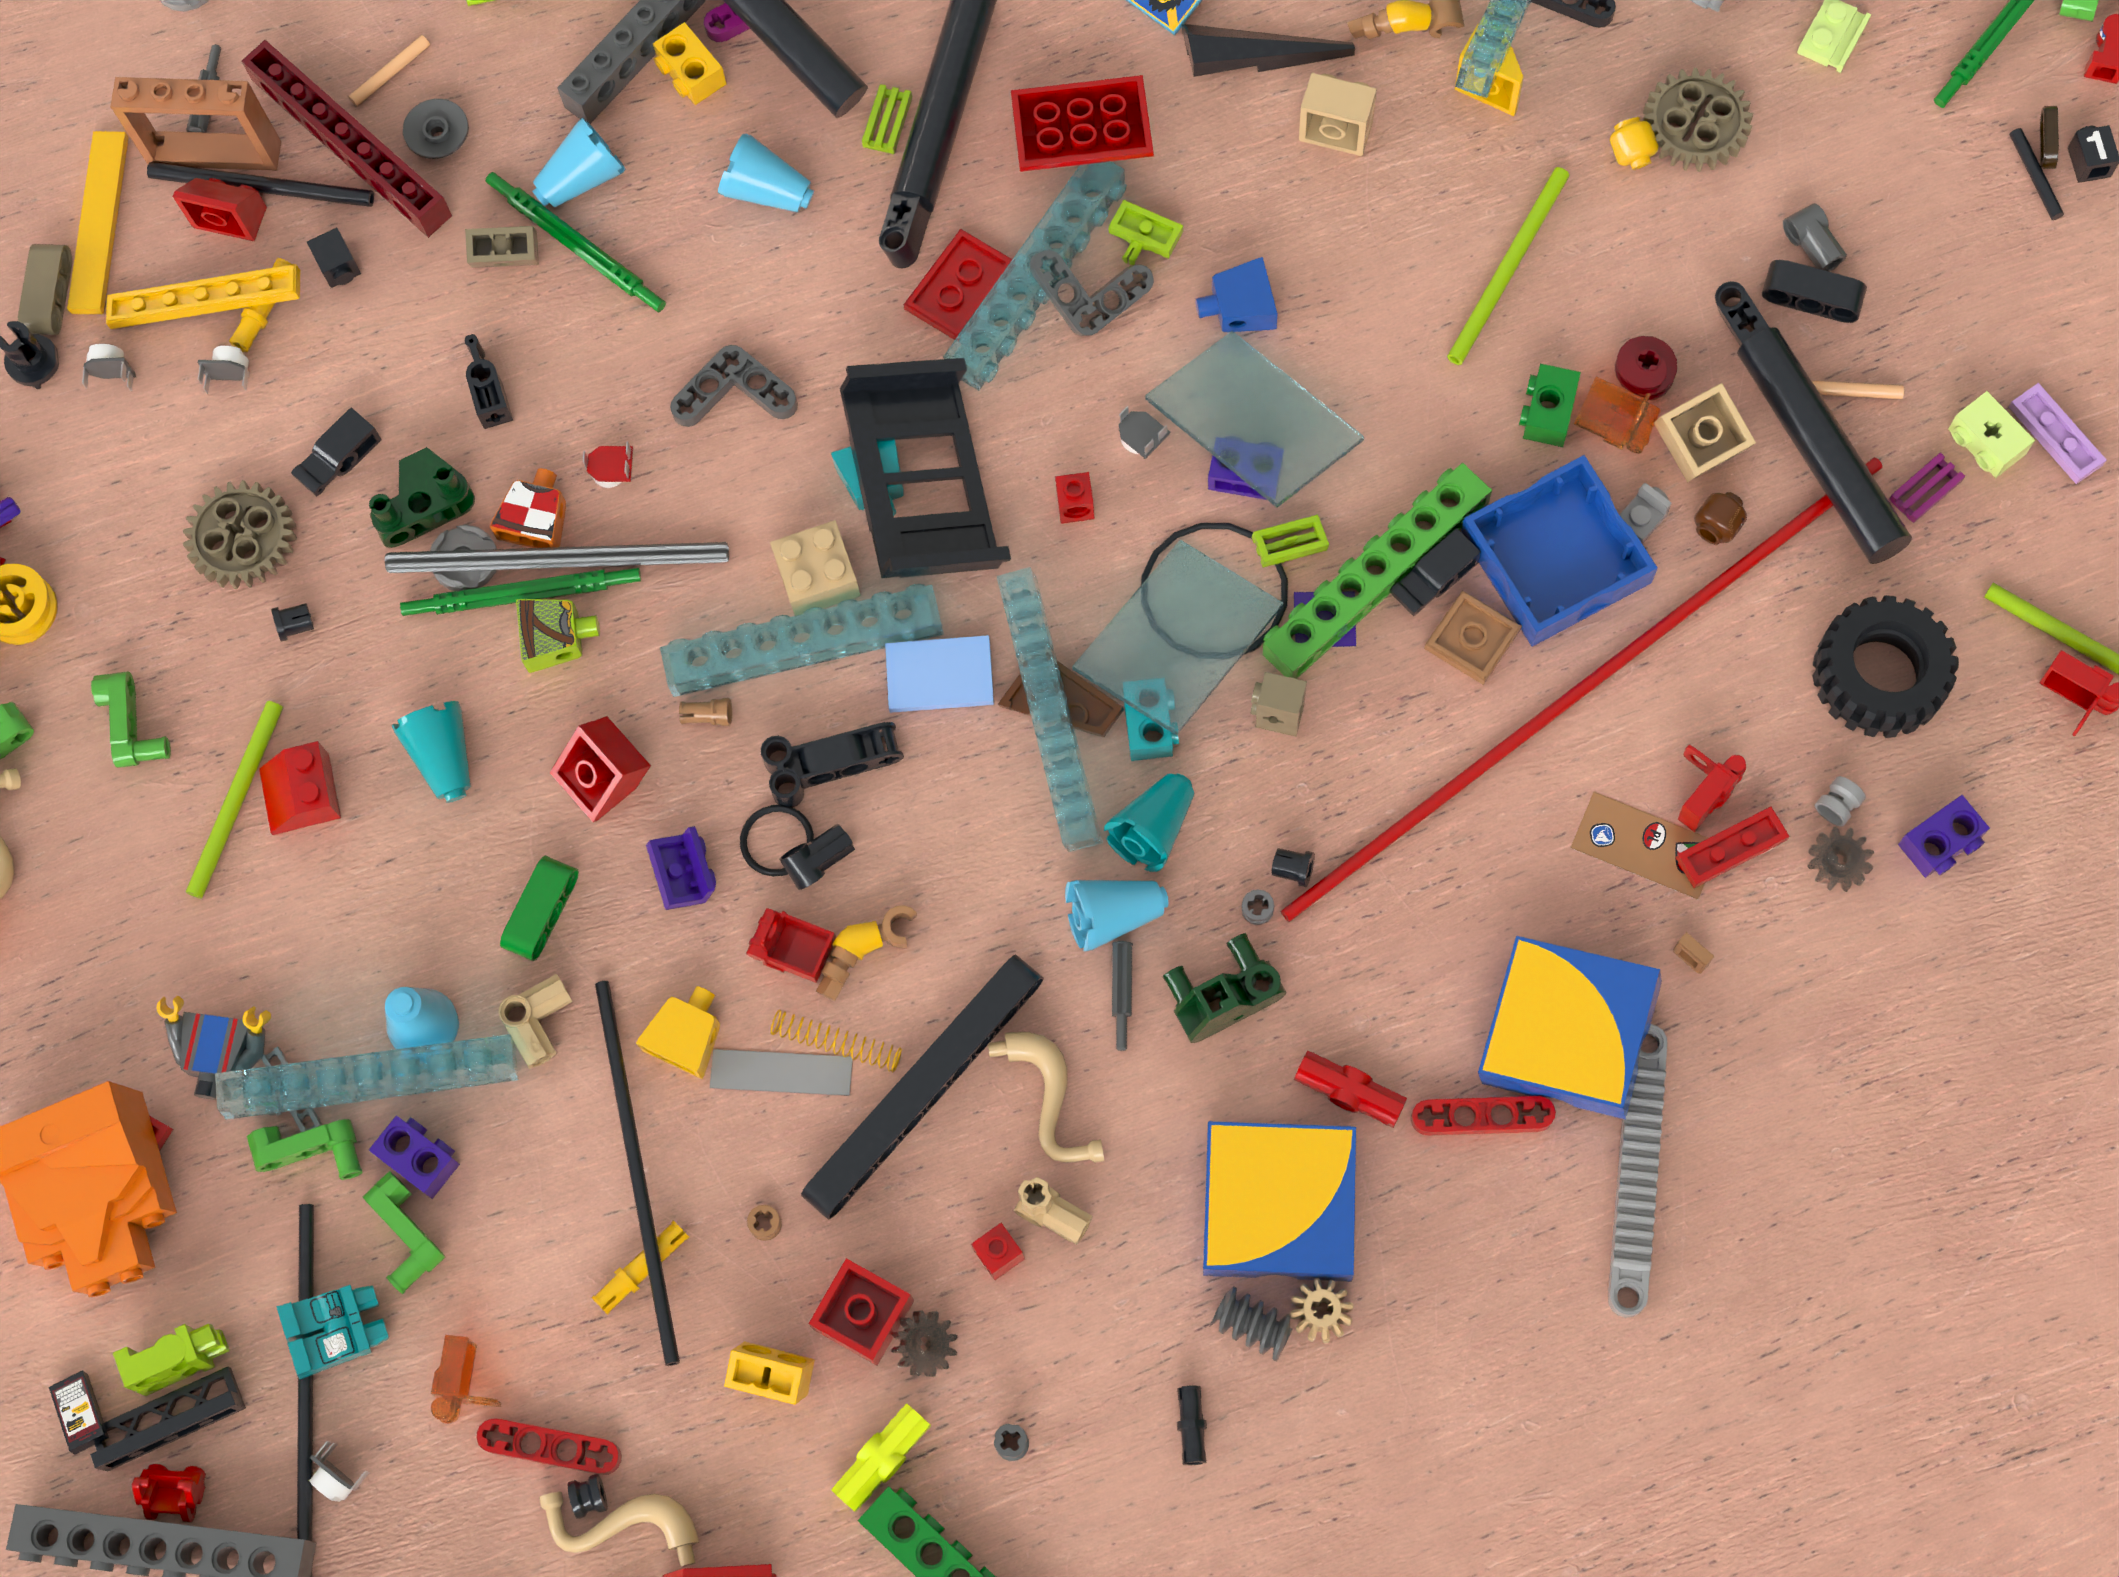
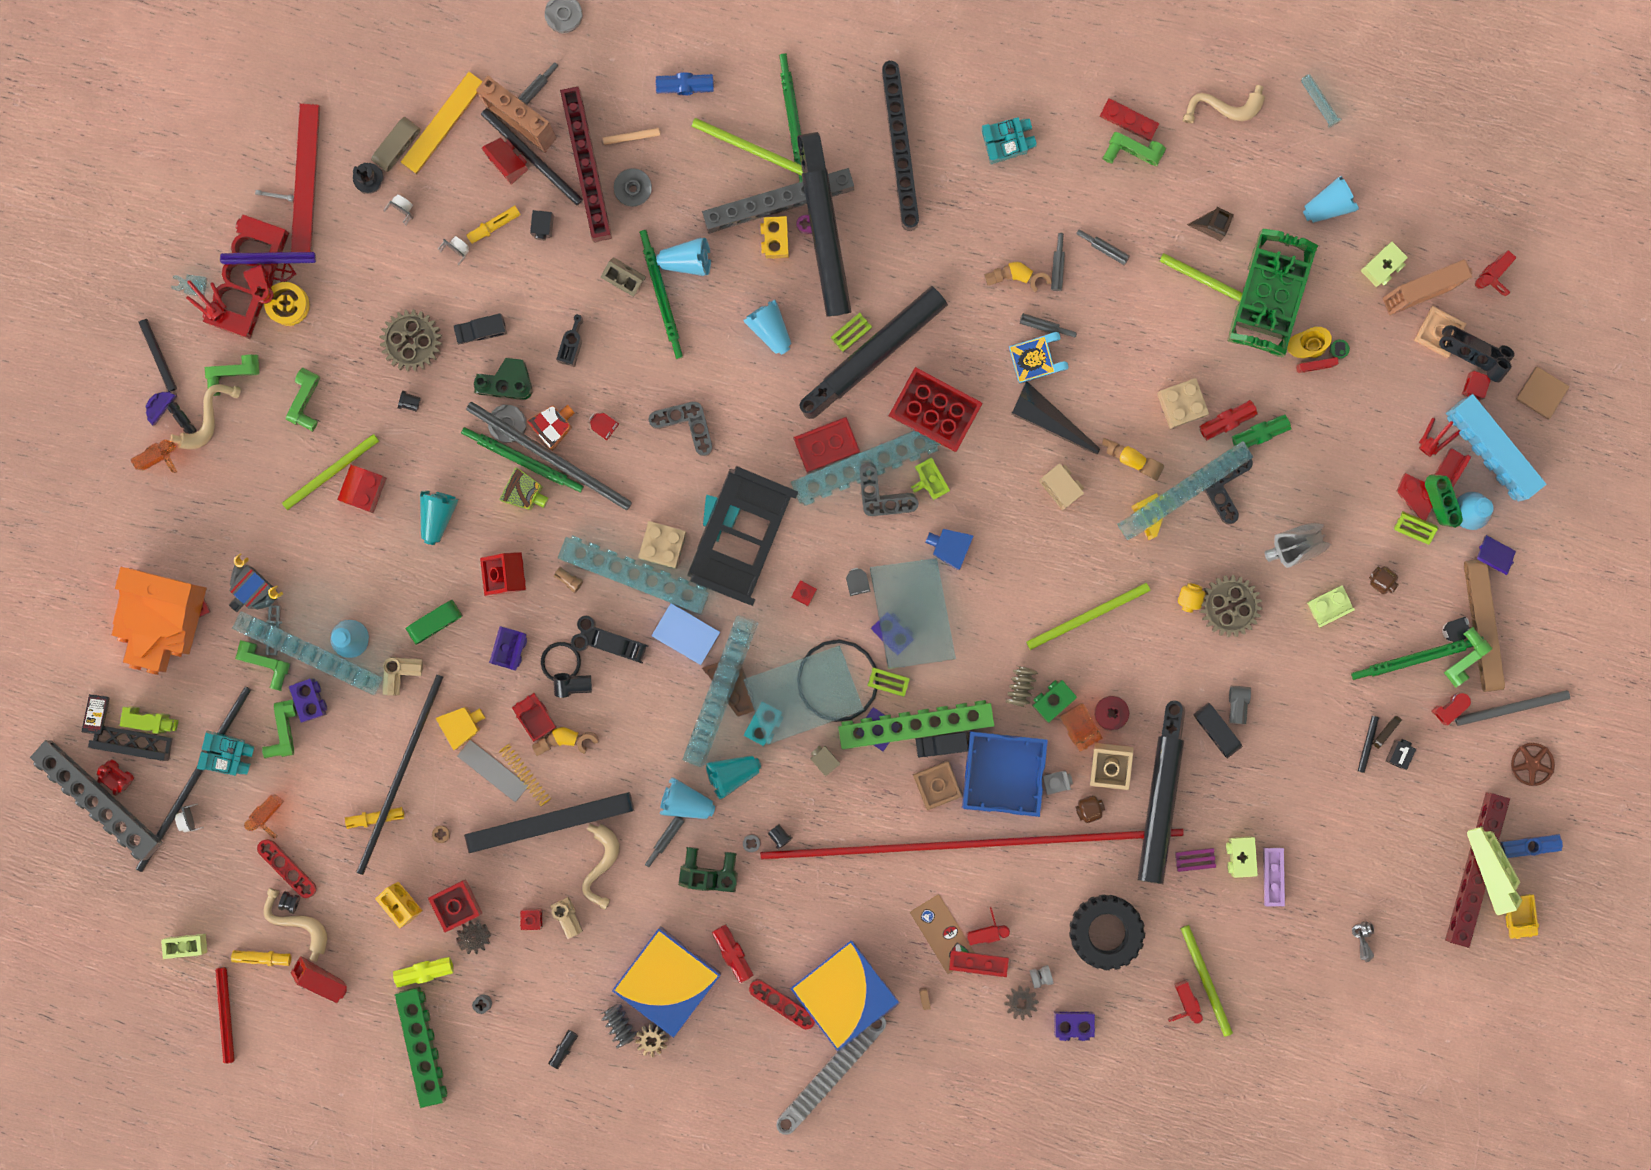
camera: 30 degrees right, 15 degrees up
(203, 296) = (467, 202): yellow tile -> none
(1487, 416) = (1022, 686): none -> dark tan piece
(1859, 389) = (1200, 790): light nougat piece -> none

